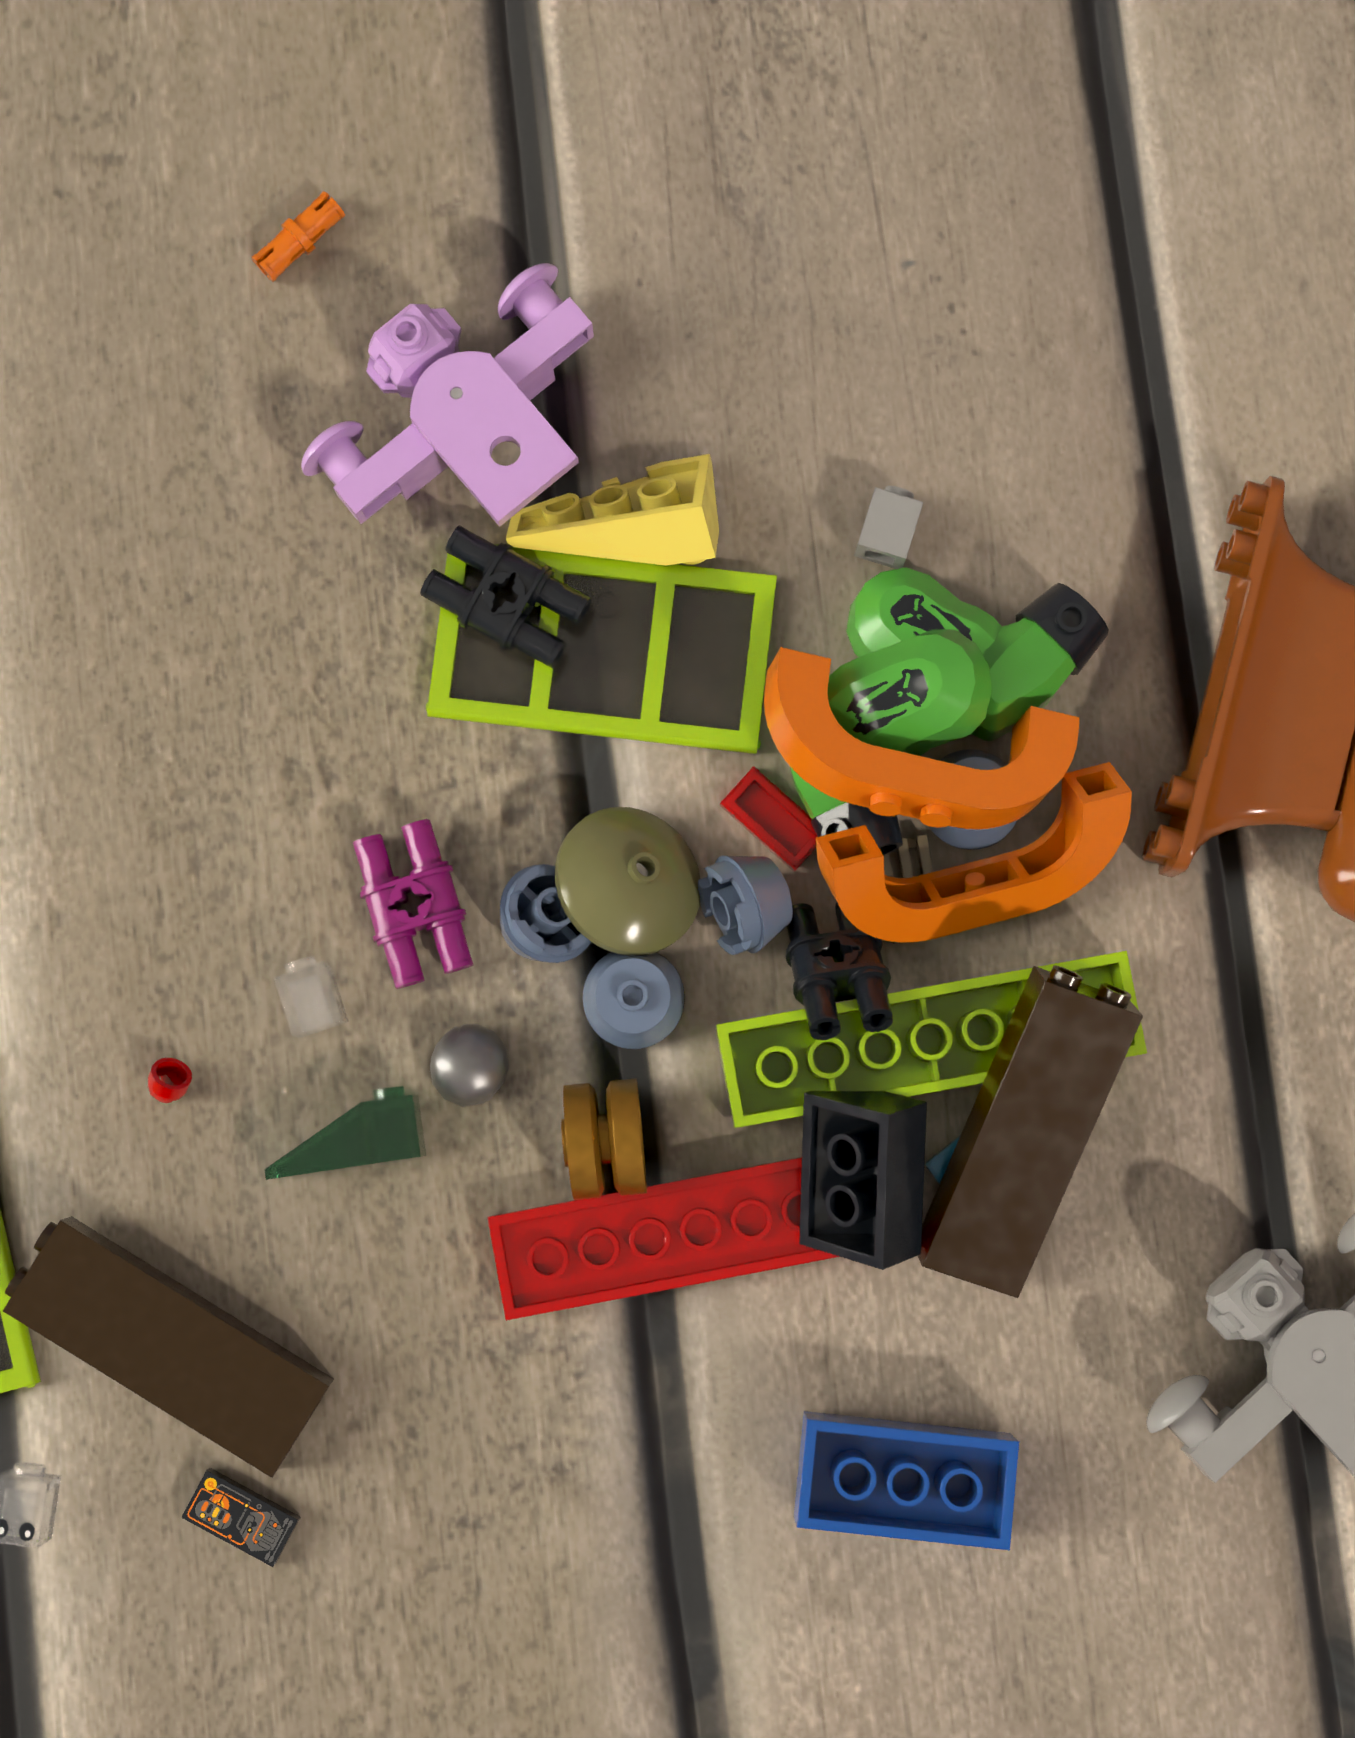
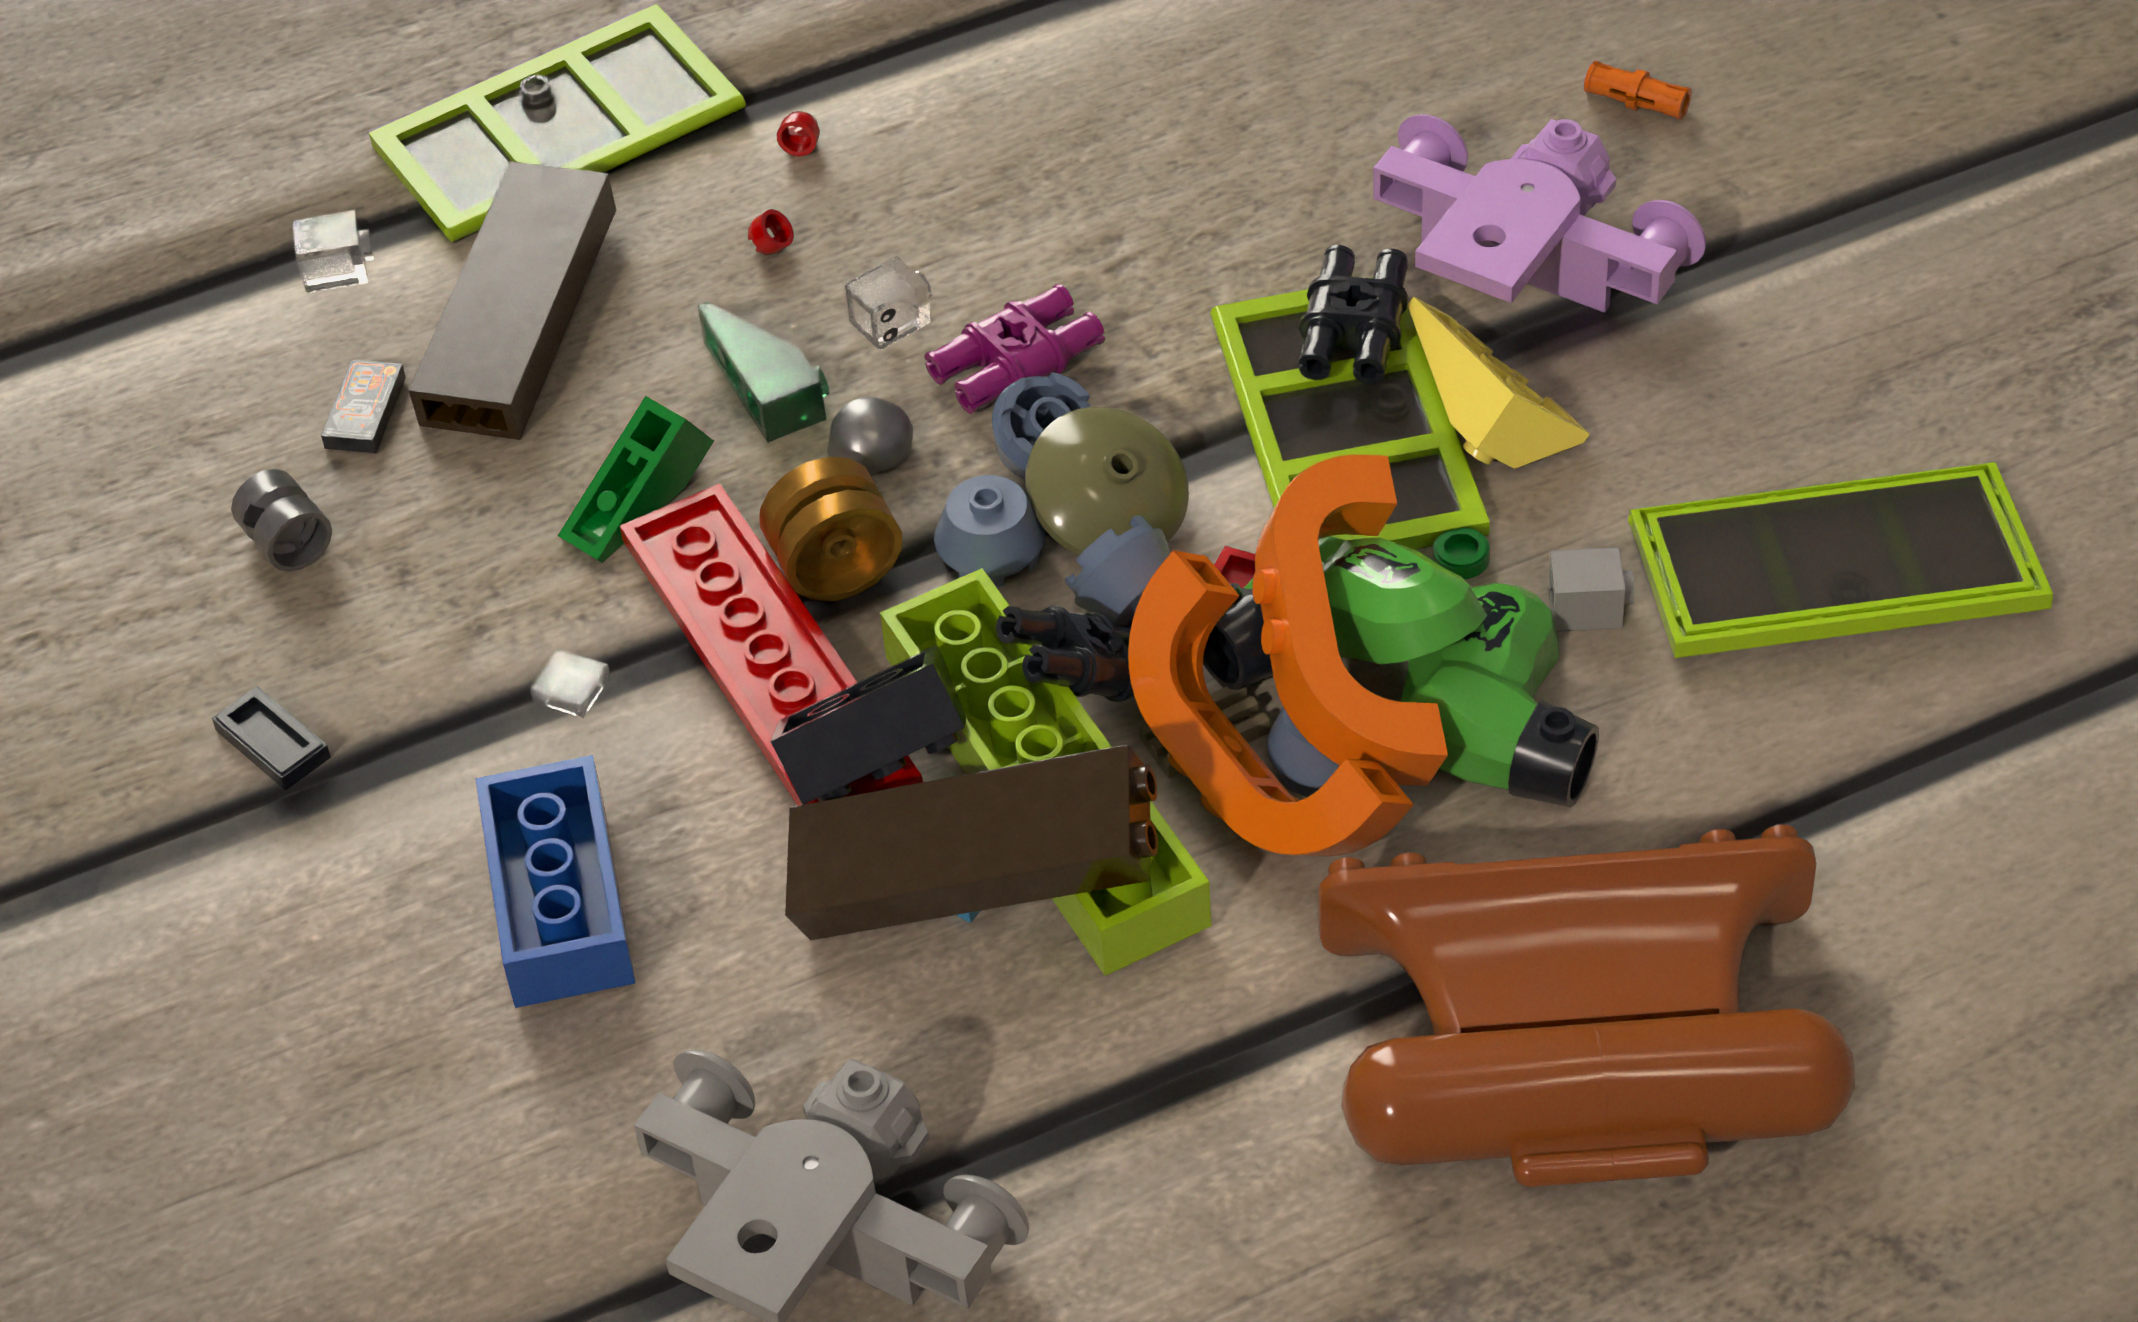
camera: 75 degrees right, 35 degrees down
(34, 1013) = (802, 137): none -> red hinge
(380, 1628) = (281, 520): none -> flat silver wheel
(452, 1291) = (638, 476): none -> green slope
(625, 1685) = (271, 738): none -> tile
(662, 1407) = (570, 683): none -> clear tile
(794, 610) = (1462, 552): none -> green tile
(920, 317) = (1838, 559): none -> clear smoke door

